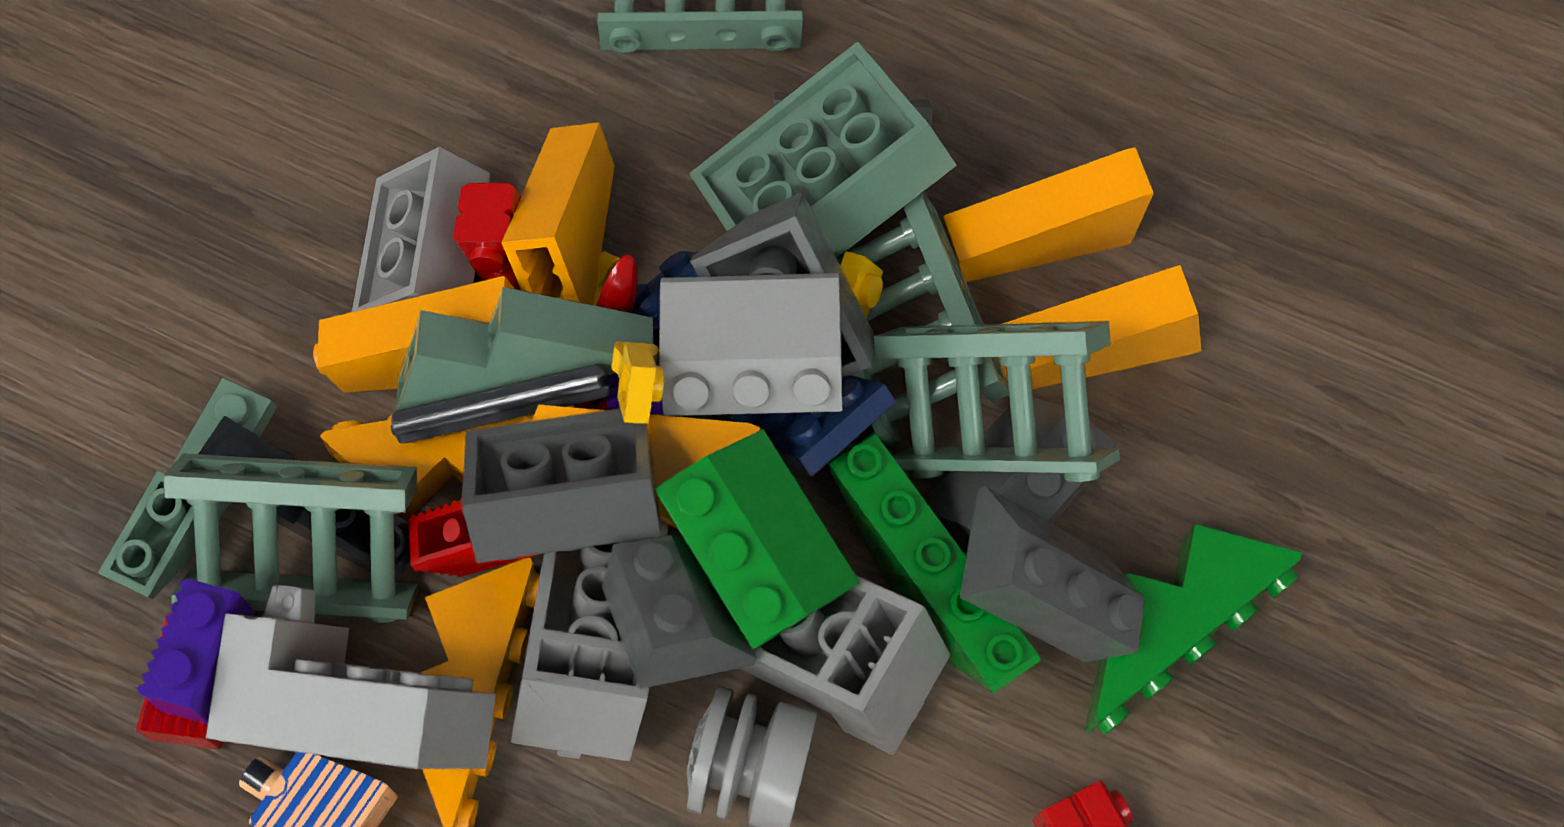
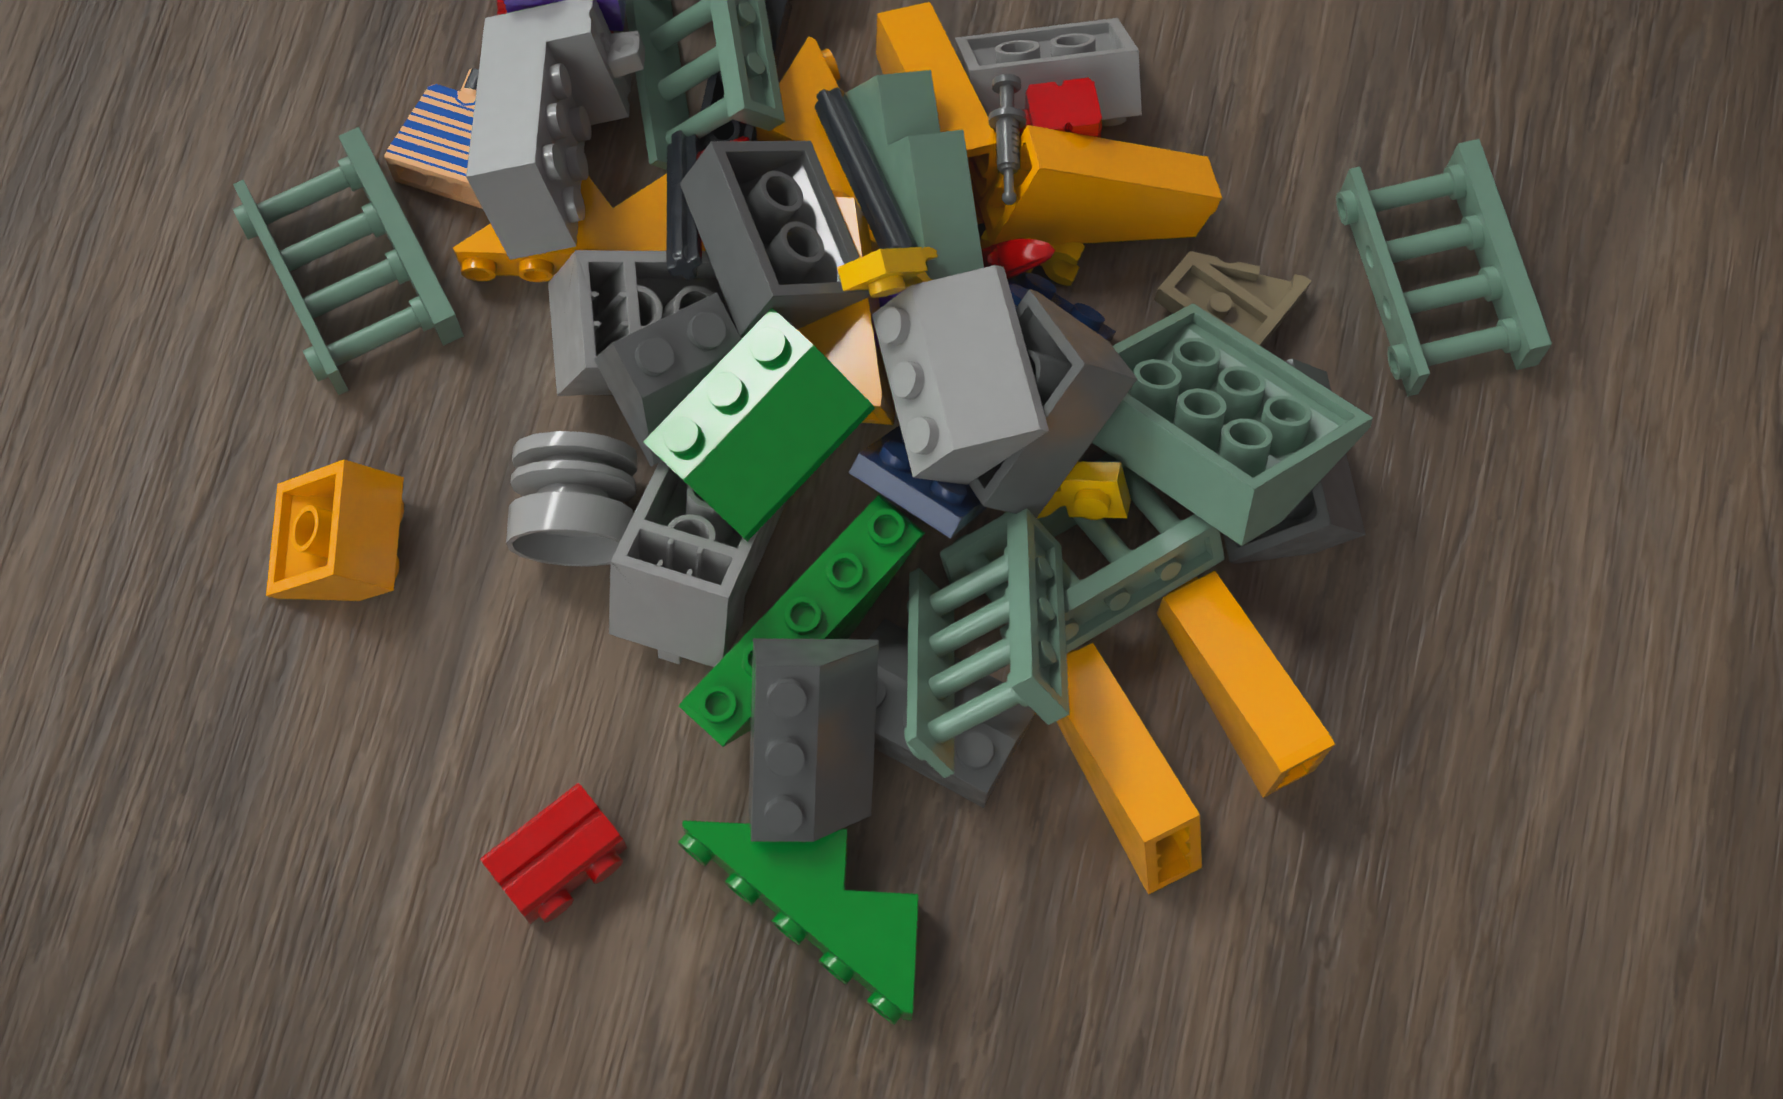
camera: 80 degrees right, 5 degrees up
(494, 577) = (683, 238): none -> black axle
(499, 264) = (1007, 122): none -> dark grey piece
(679, 147) = (1232, 294): none -> dark tan wing

